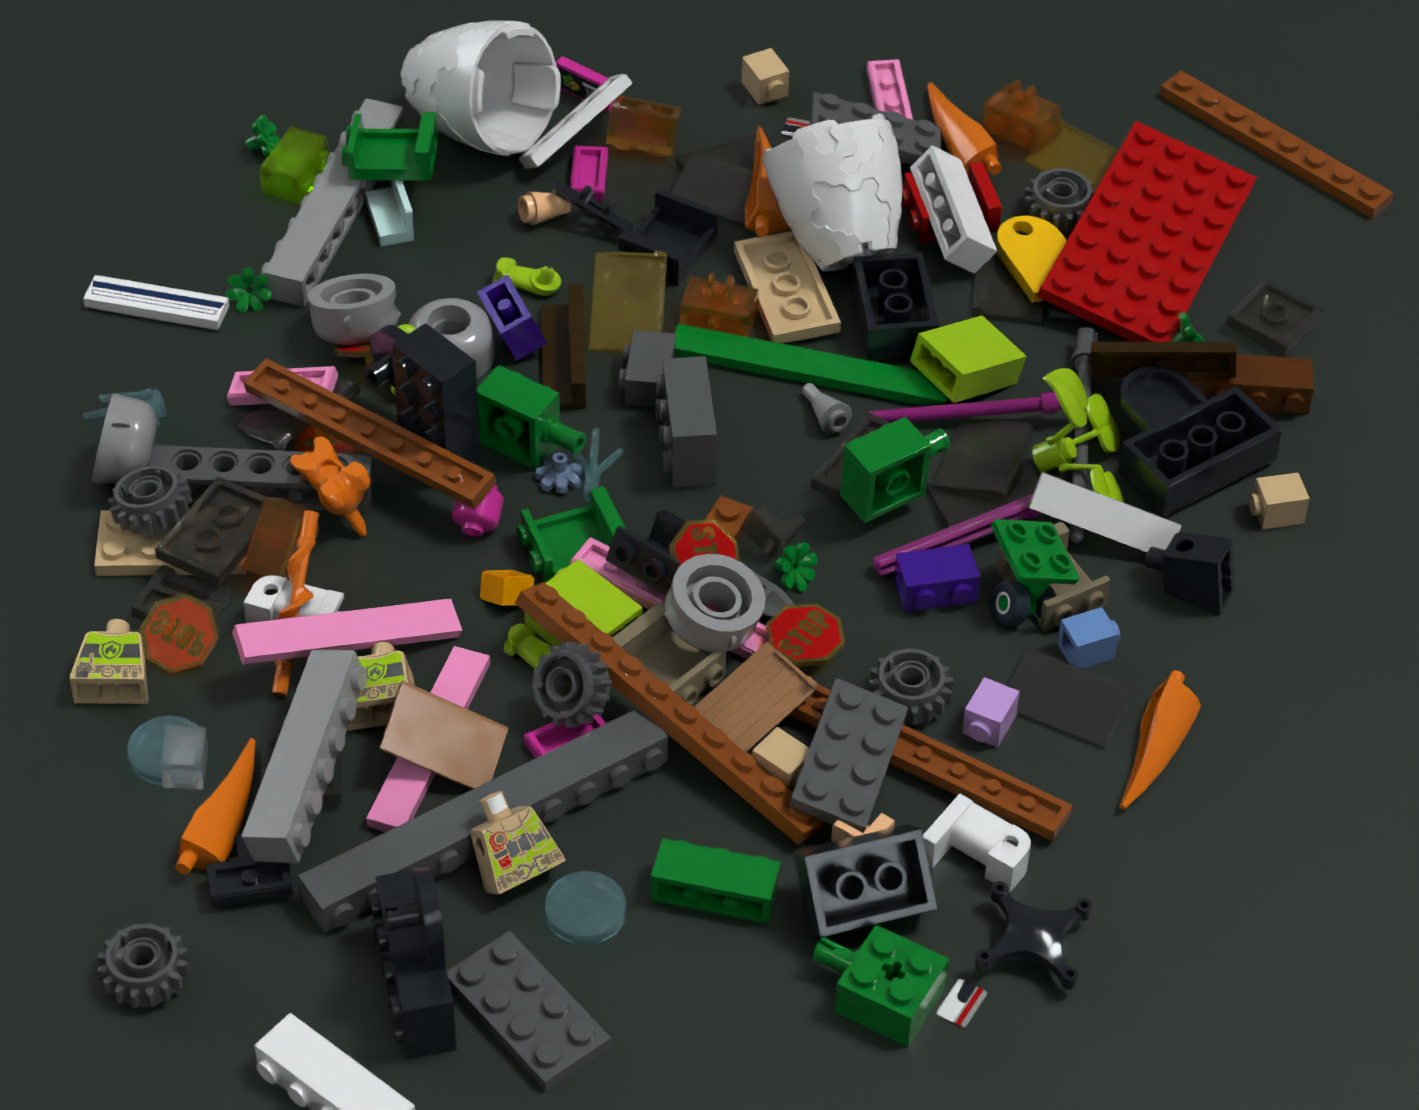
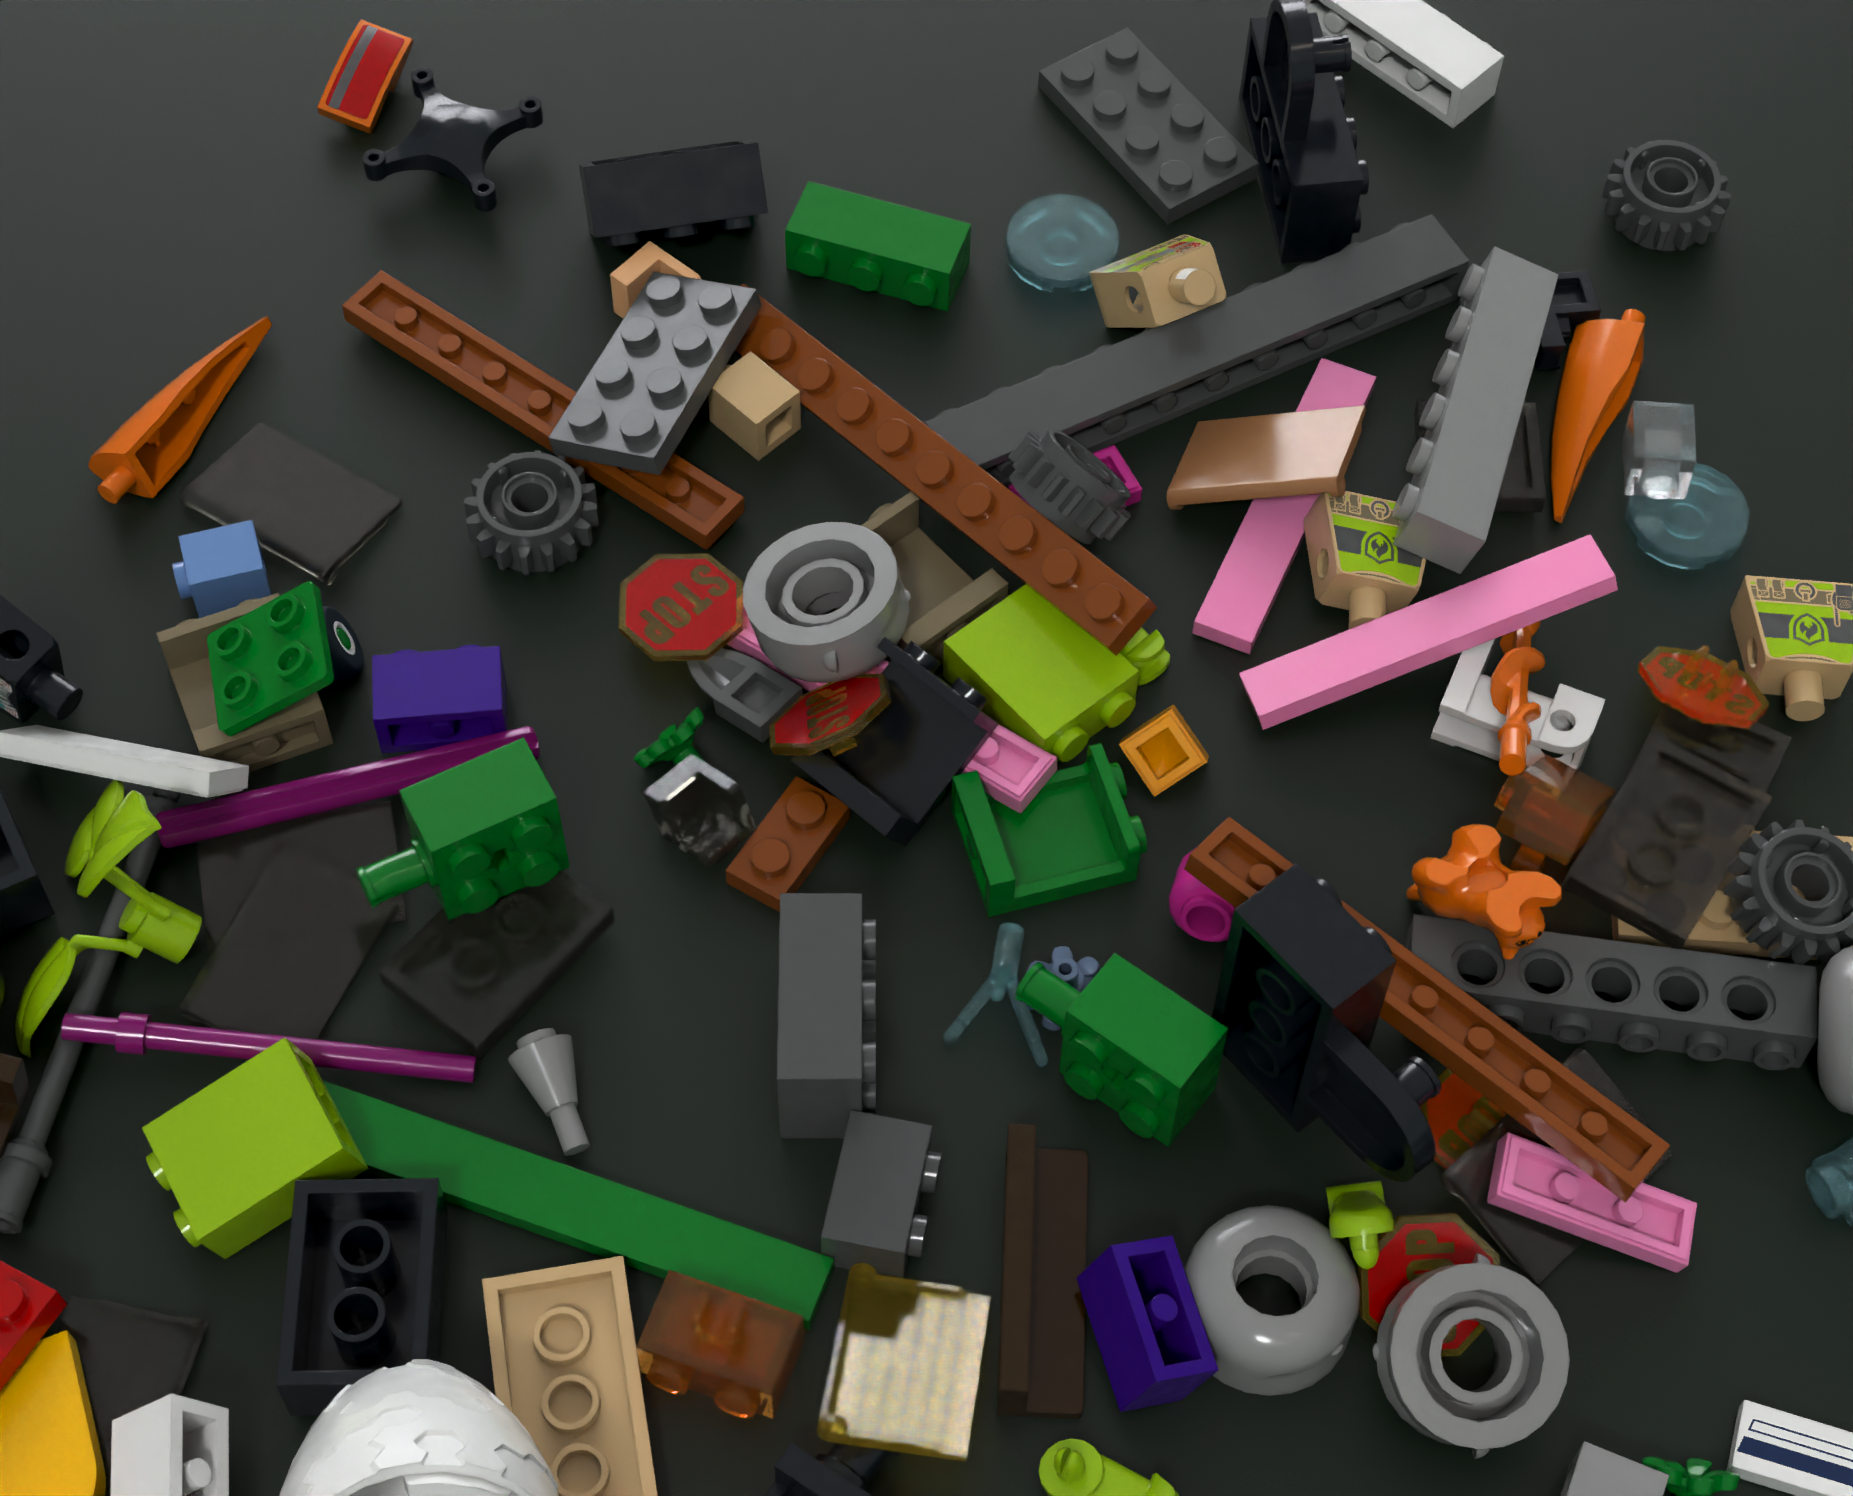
camera: 175 degrees left, 10 degrees up
(756, 697) = (780, 492): medium nougat piece -> none
(886, 982) = (665, 90): green brick -> none
(962, 1003) = (571, 101): sticker -> none
(980, 837) = (491, 280): white piece -> none
(990, 712) = (419, 459): lavender brick -> none
(1115, 989) = (364, 76): none -> slope

